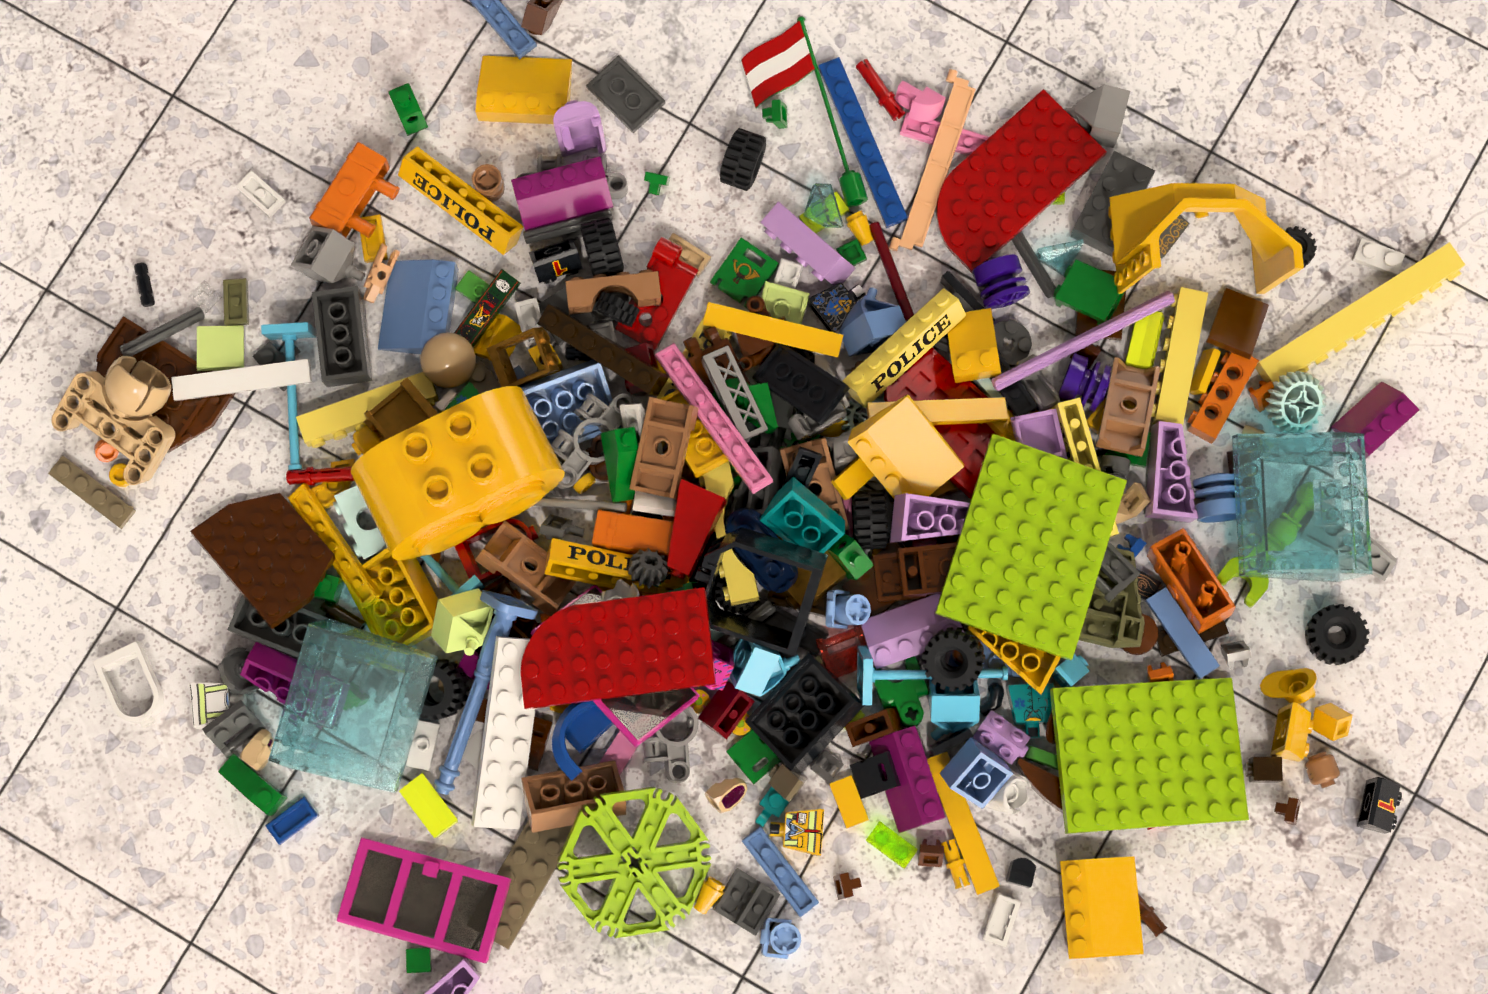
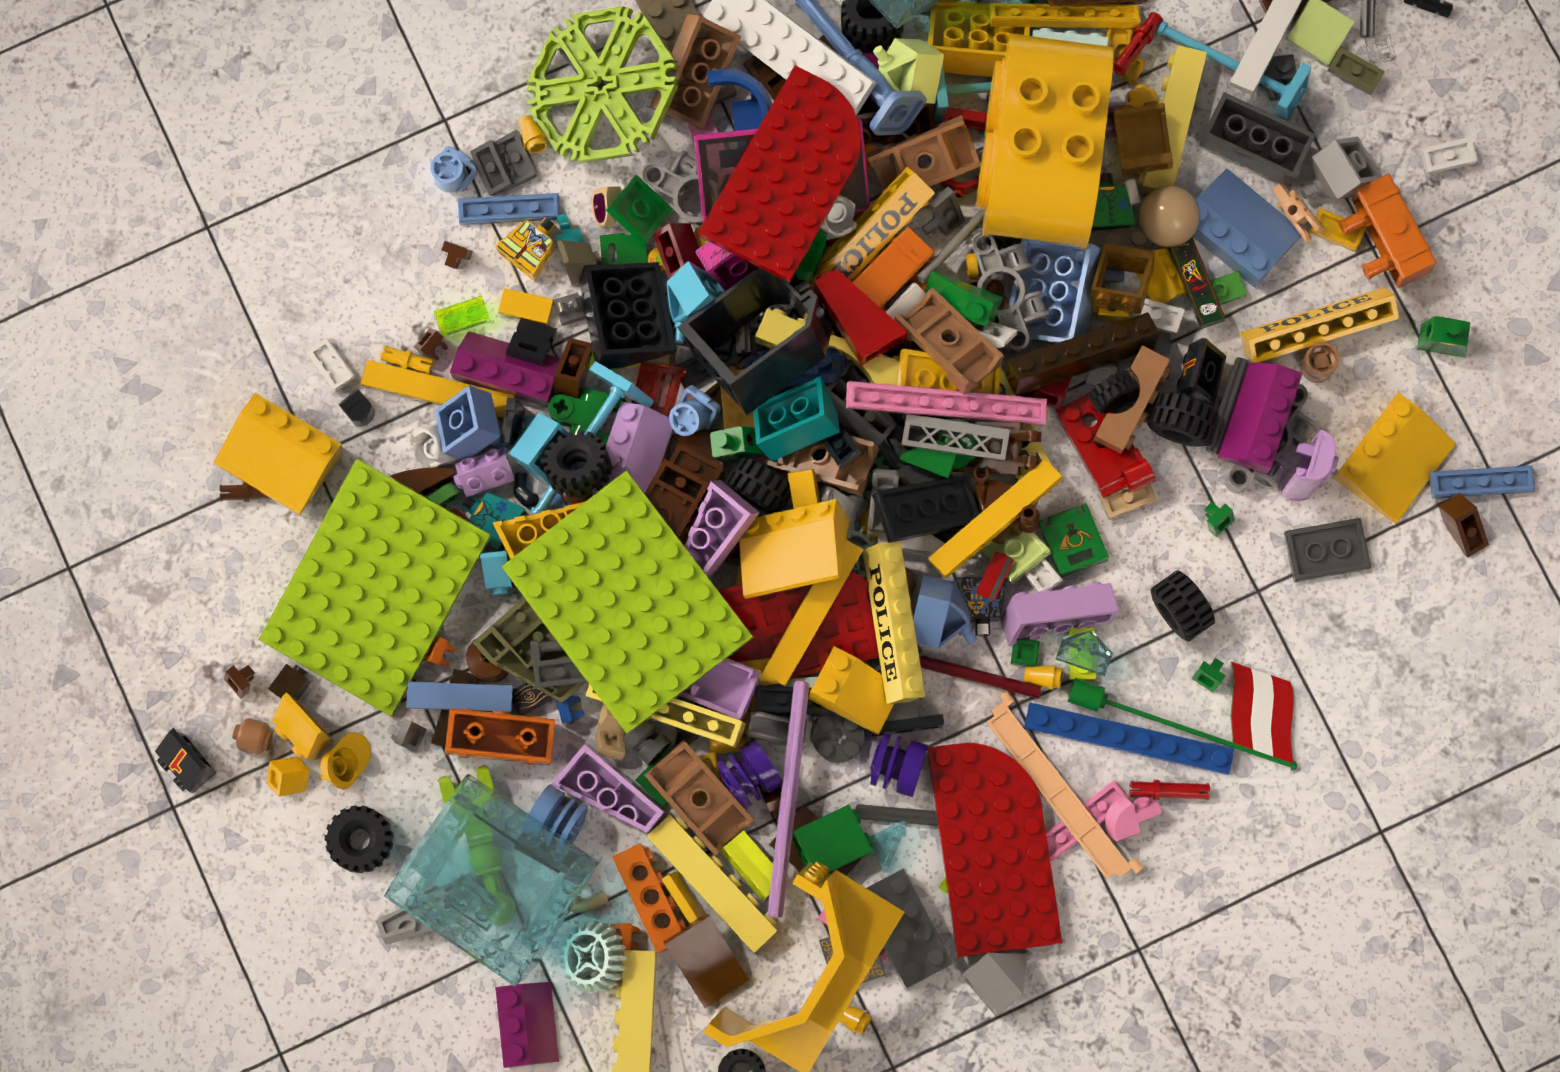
camera: 125 degrees right, 0 degrees up
(648, 568) = (843, 250): dark grey gear -> none
(714, 763) = (639, 209): none -> green plate
(813, 306) = (994, 576): none -> red sticker

